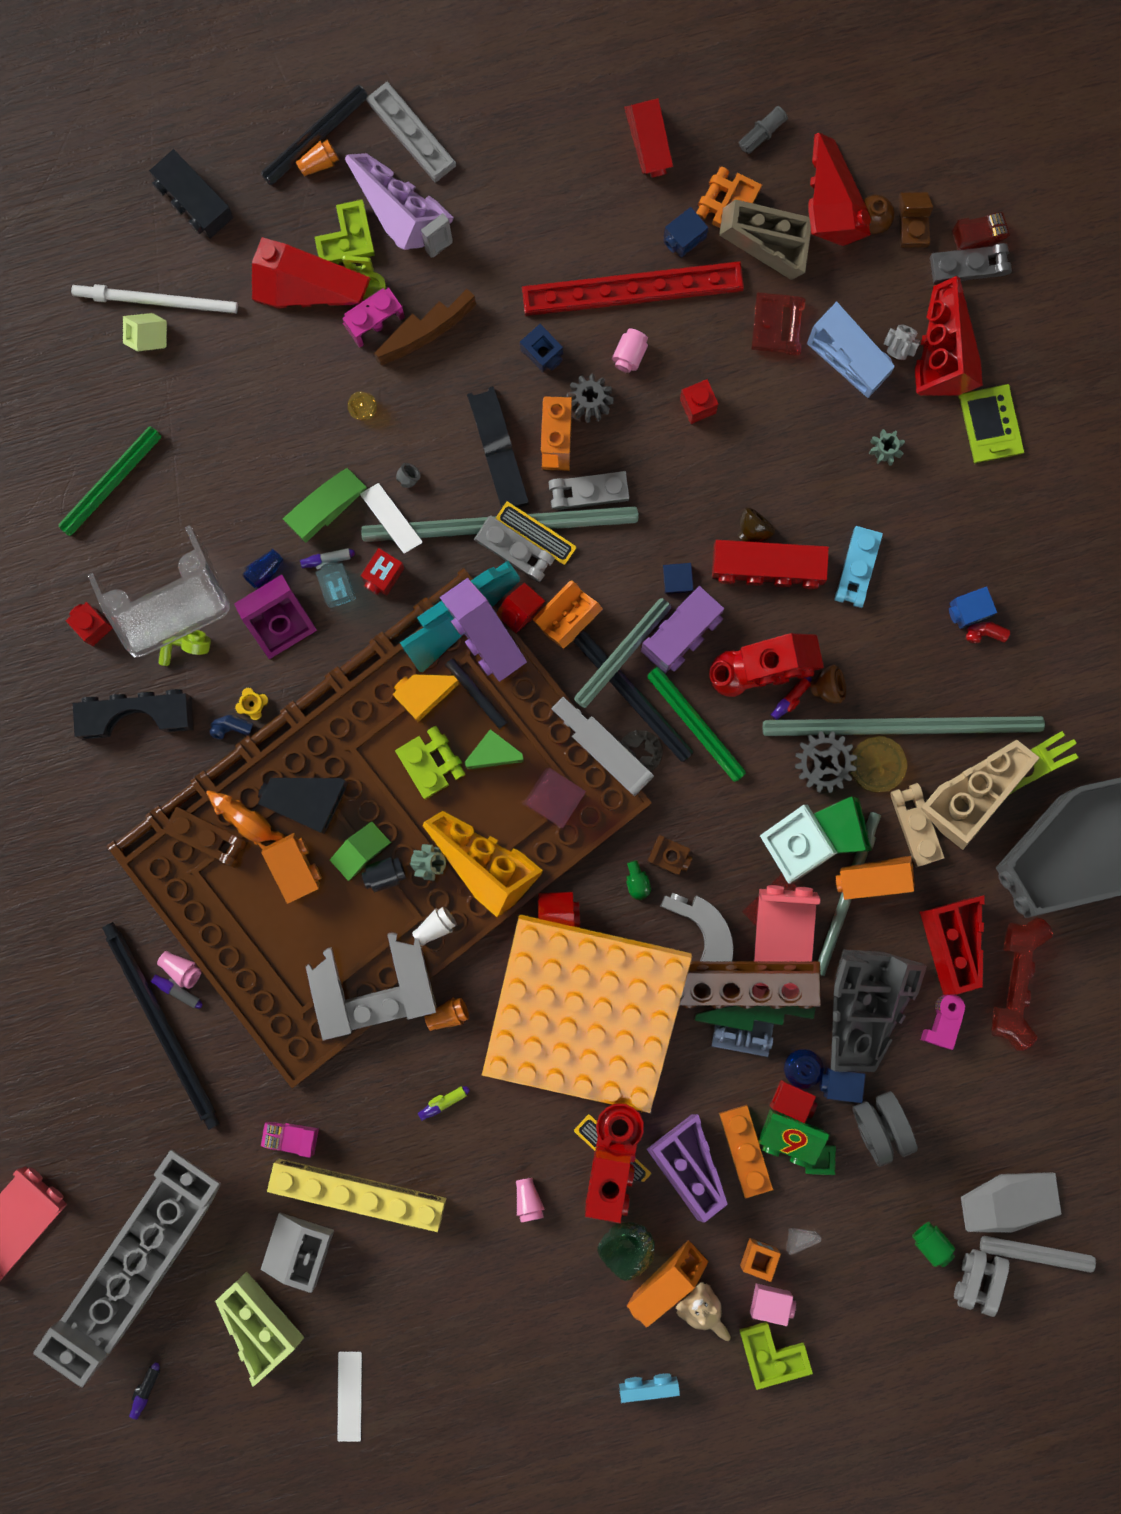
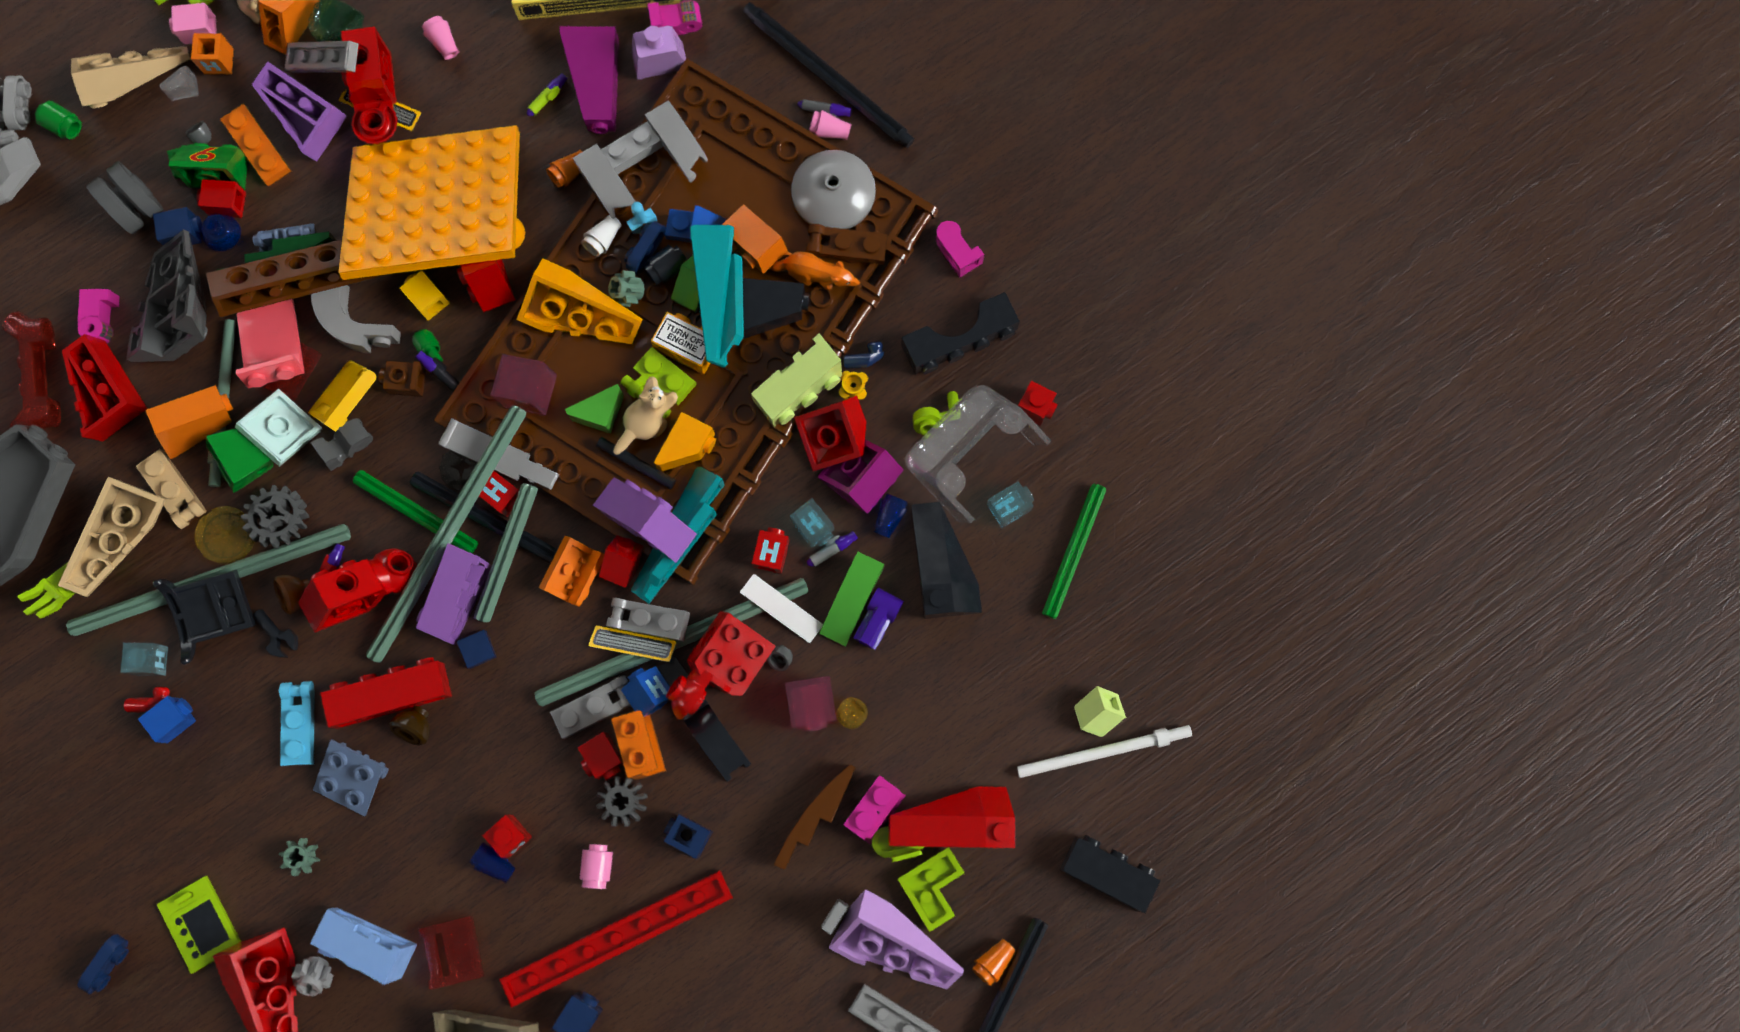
camera: 155 degrees right, 5 degrees down
(105, 798) = (956, 249): none -> dark pink leg
(149, 540) = (1011, 504): none -> clear light blue brick
(218, 897) = (837, 205): none -> light grey dish
(234, 502) = (944, 571): none -> black wedge
(285, 661) = (833, 433): none -> red slope
(298, 712) = (798, 383): none -> yellowish green wedge
(305, 481) = (881, 612): none -> dark purple piece
(320, 1103) = (657, 51): none -> lavender torso
(338, 821) = (719, 289): none -> teal wedge
(343, 905) = (680, 222): none -> blue slope
(388, 907) = (650, 239): none -> dark blue plate
(388, 1108) = (594, 71): none -> magenta slope
(390, 790) = (681, 342): none -> brick
(391, 926) = (640, 217): none -> medium azure bar
(393, 422) = (811, 703): none -> clear pink head
(451, 730) = (644, 416): none -> tan animal
(456, 486) = (723, 658): none -> red brick
(535, 482) = (646, 691): none -> blue brick
(595, 442) = (601, 757): none -> red brick
(611, 711) = (499, 494): none -> red brick
(625, 927) = (424, 294): none -> yellow brick
(632, 850) = (438, 369): none -> black piece
(649, 1208) = (321, 57): none -> light grey tile
(668, 687) = (446, 534): none -> sand green axle
(722, 386) = (490, 863): none -> clear blue cone
(725, 855) = (342, 395): none -> yellow container
(743, 811) = (345, 443): none -> dark grey leg
(797, 1182) = (199, 133): none -> dark grey hinge
(823, 502) = (349, 777): none -> sand blue hinge
(856, 654) = (275, 635): none -> black bar
(862, 1273) = (106, 78): none -> tan wedge
(910, 694) = (206, 609): none -> black piece
(980, 668) = (144, 659): none -> clear light blue brick
(1088, 406) = (98, 971): none -> dark blue plate

